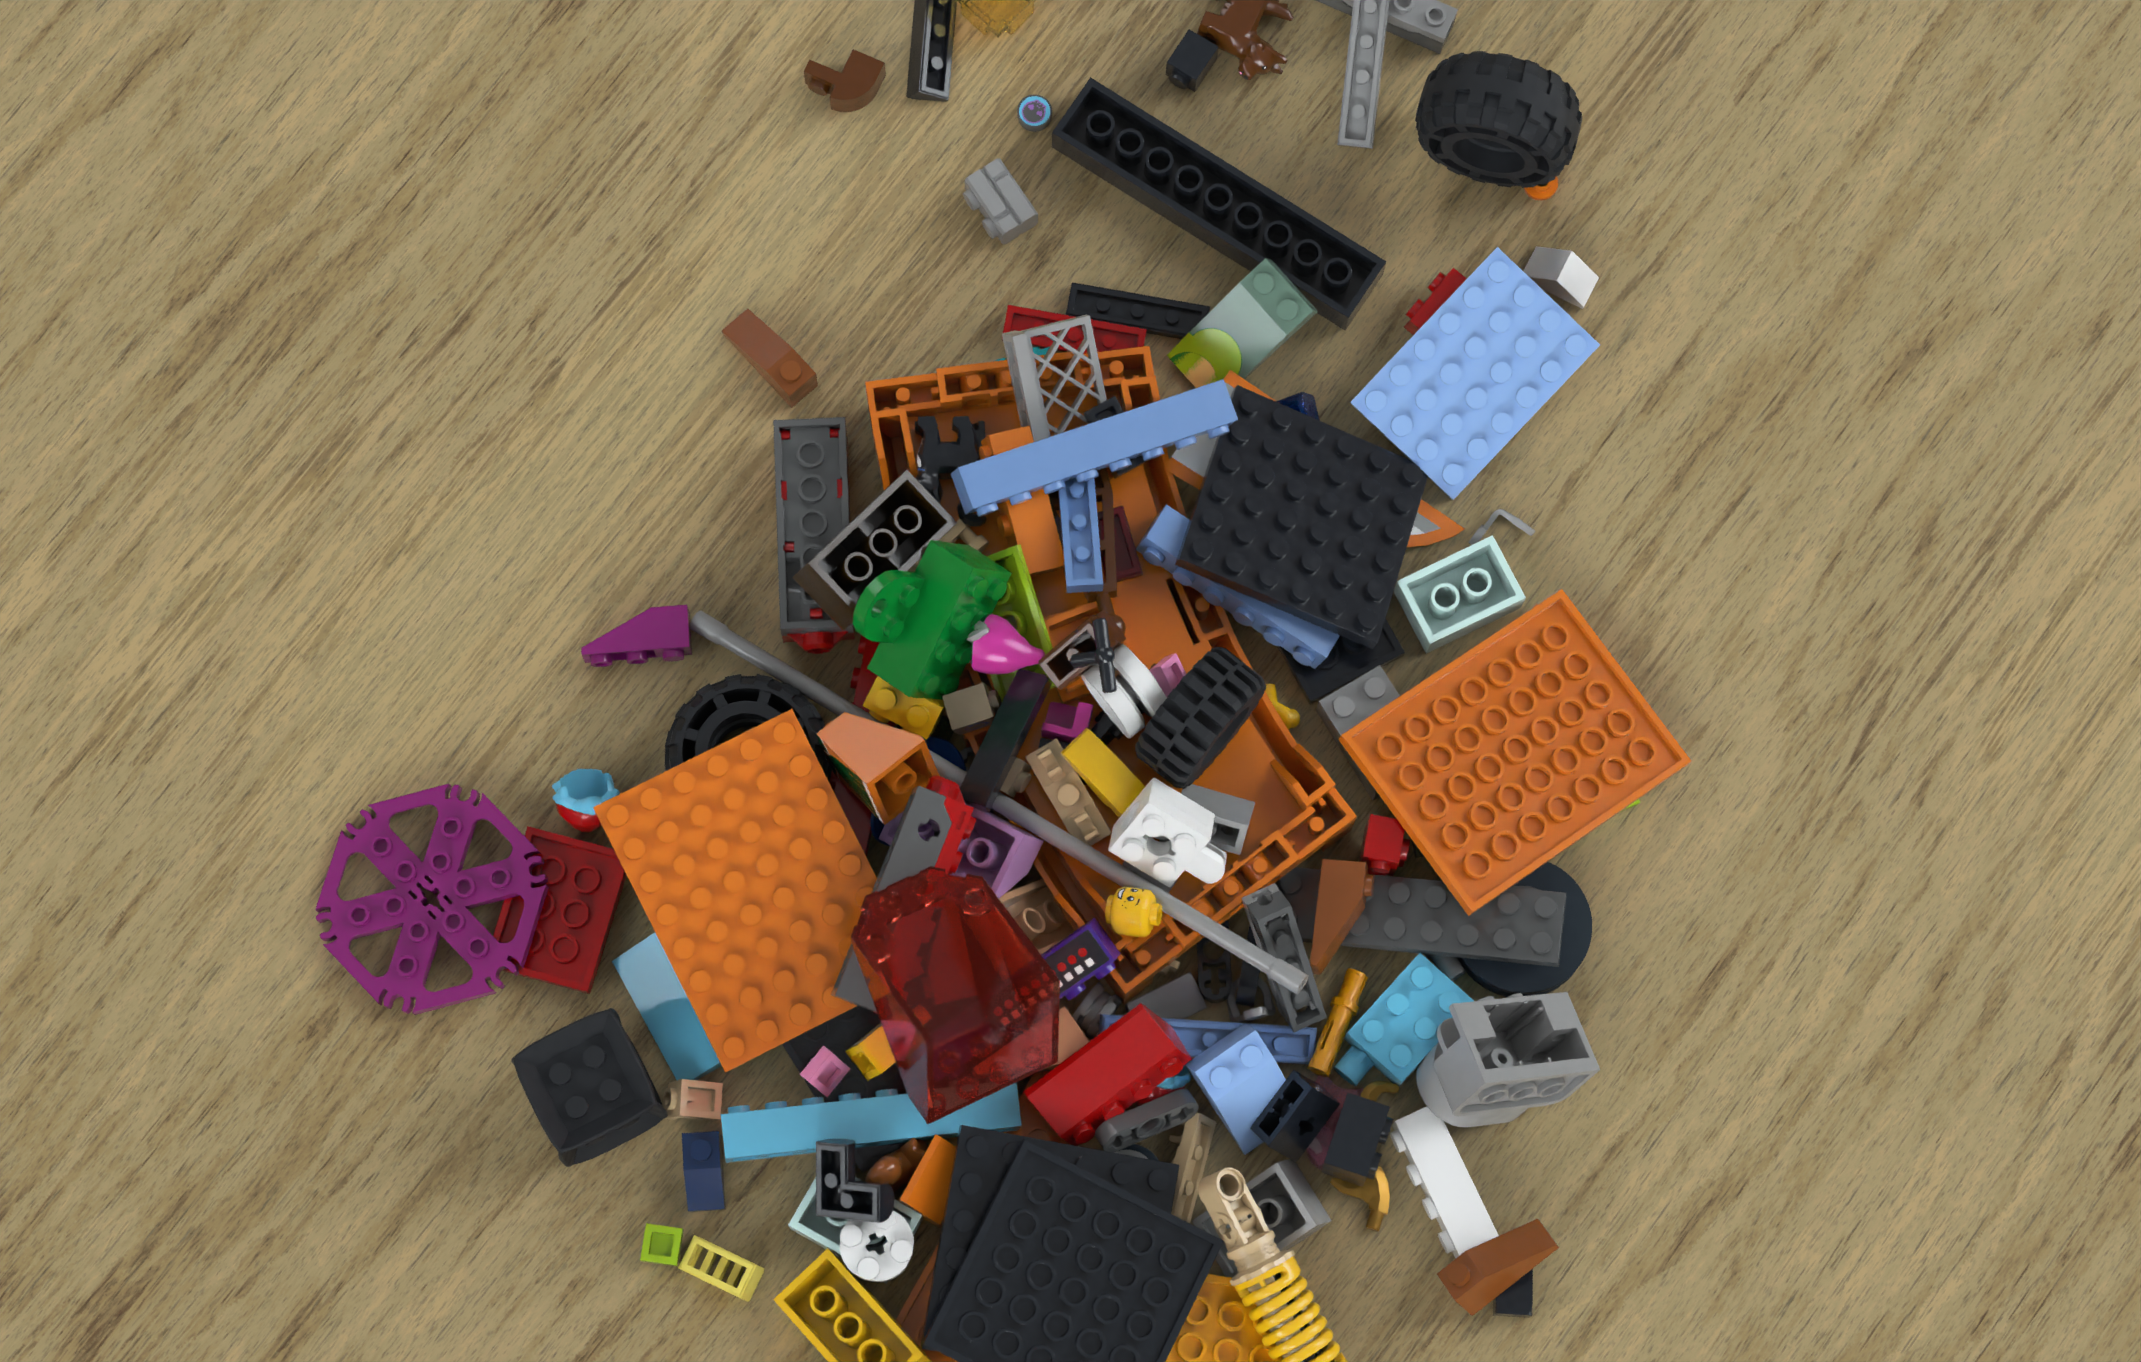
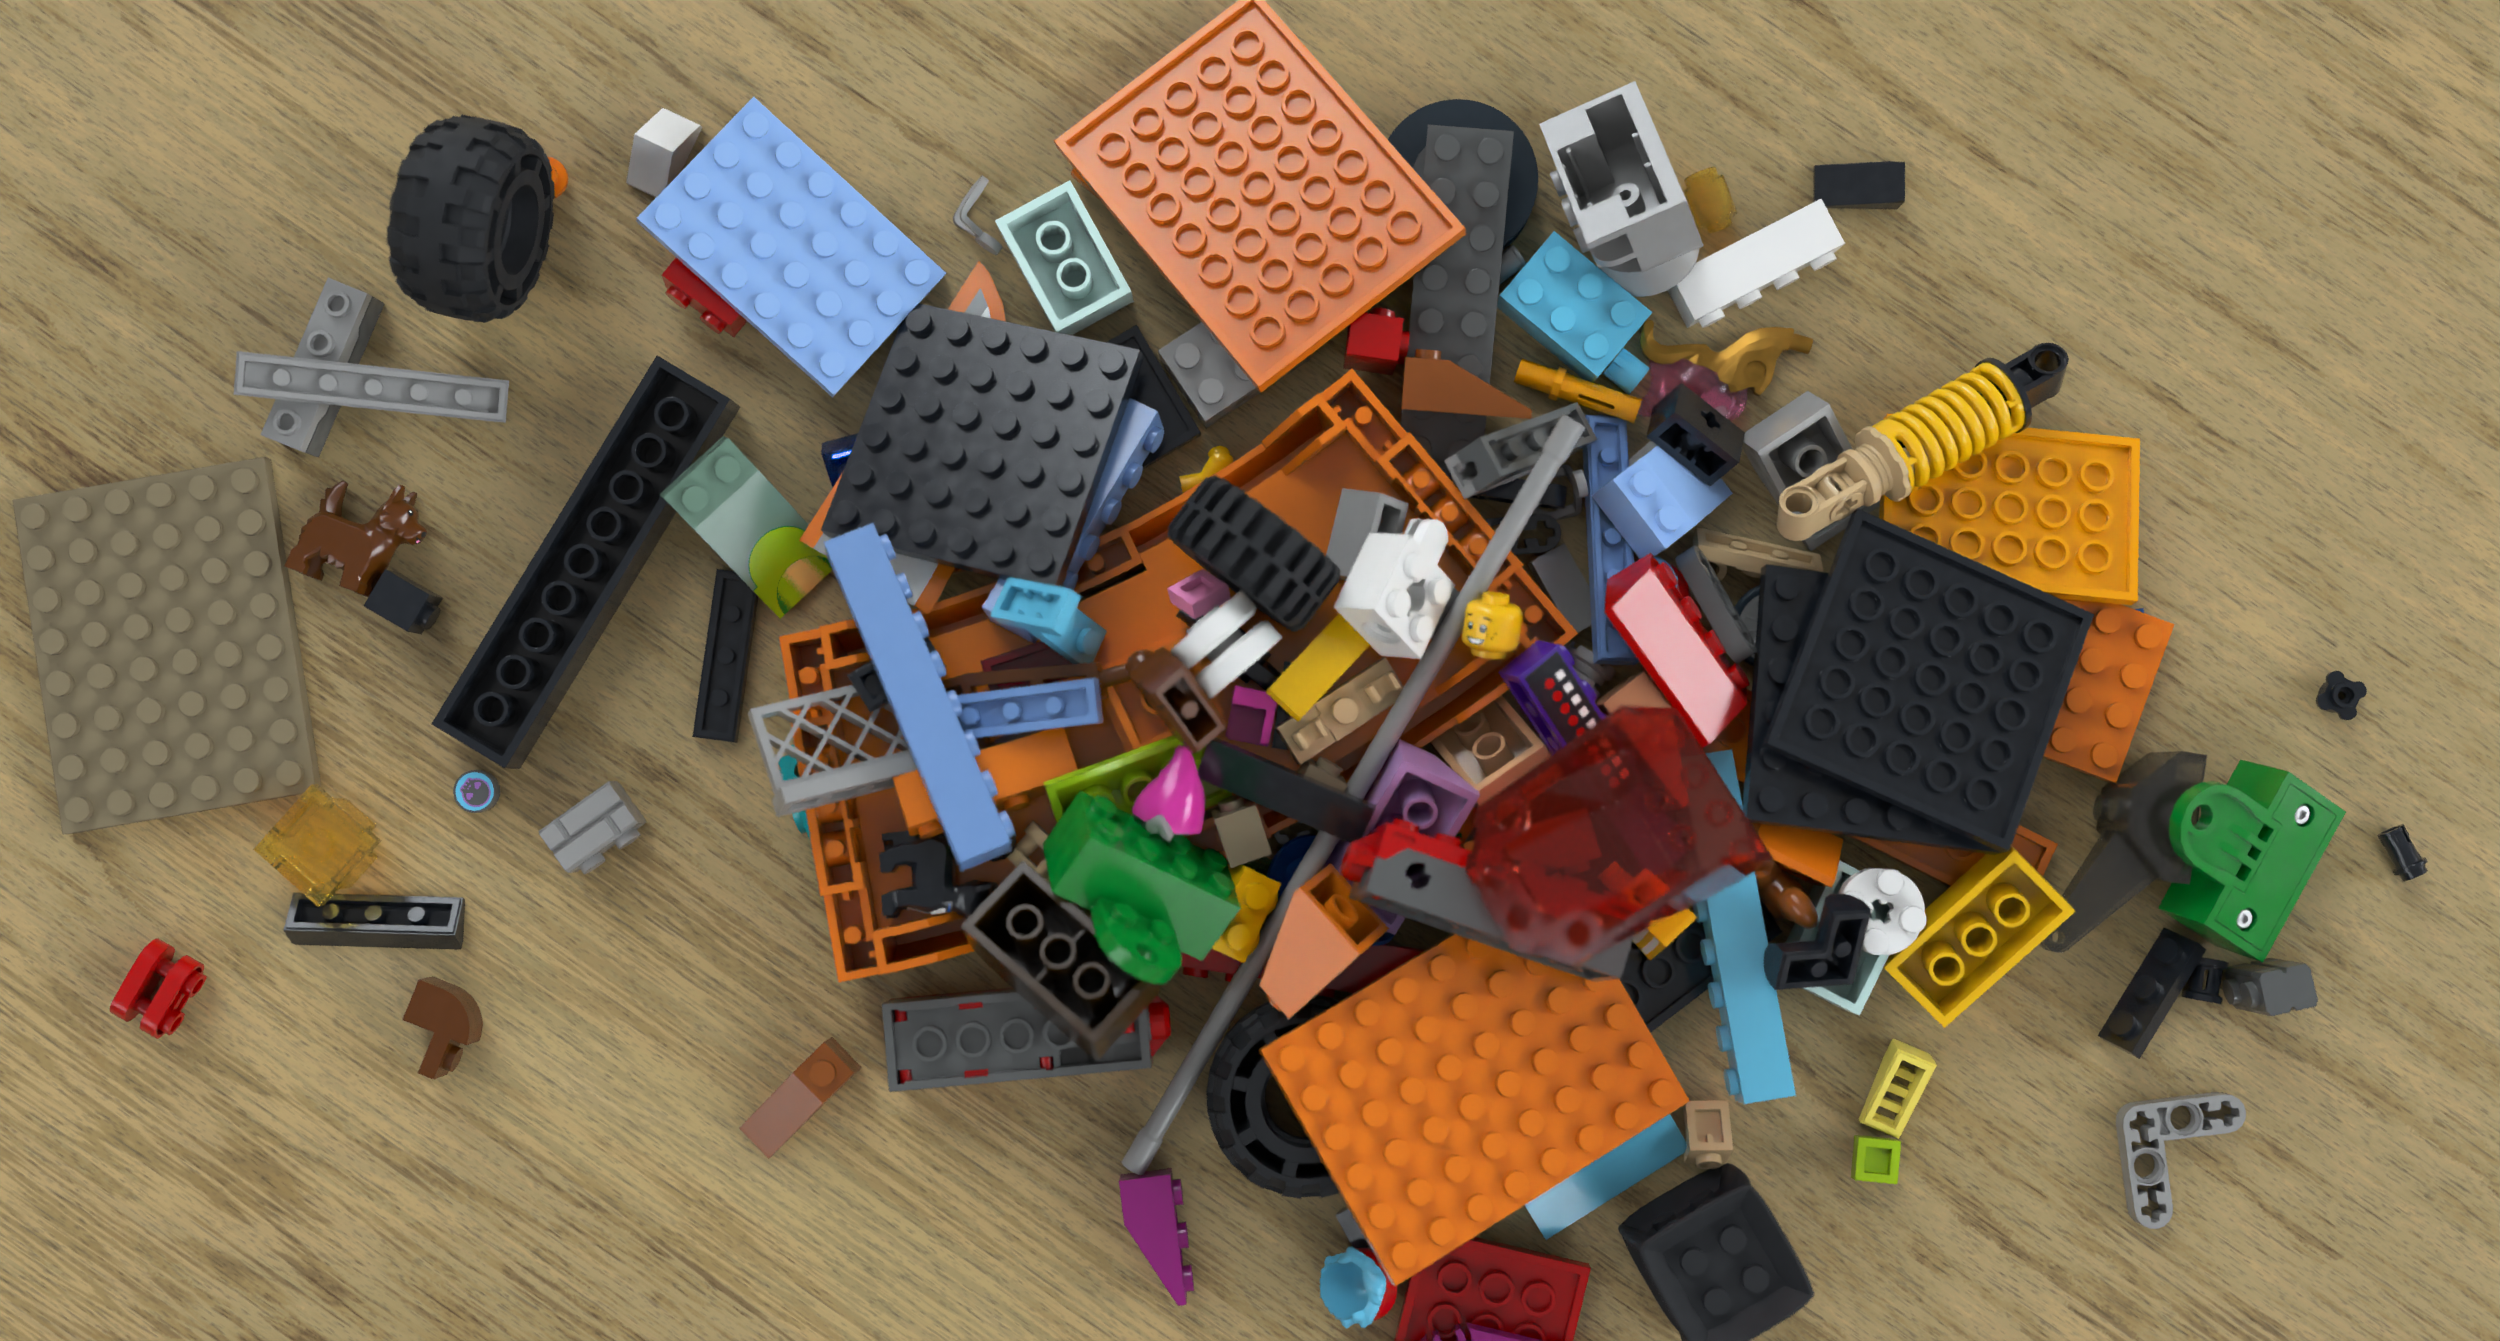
camera: 95 degrees left, 10 degrees up
(703, 1171) = (1788, 1118): dark blue slope -> none
(825, 1071) = (1680, 983): bright pink plate -> none
(1103, 656) = (1195, 672): black piece -> none
(1107, 335) = (763, 685): red plate -> none
(1153, 558) = (1050, 616): none -> medium azure bracket
(1355, 1140) = (1726, 360): black brick -> none
(1495, 1265) = (1851, 199): dark orange slope -> none
(1501, 1145) = (1709, 200): none -> clear yellow brick

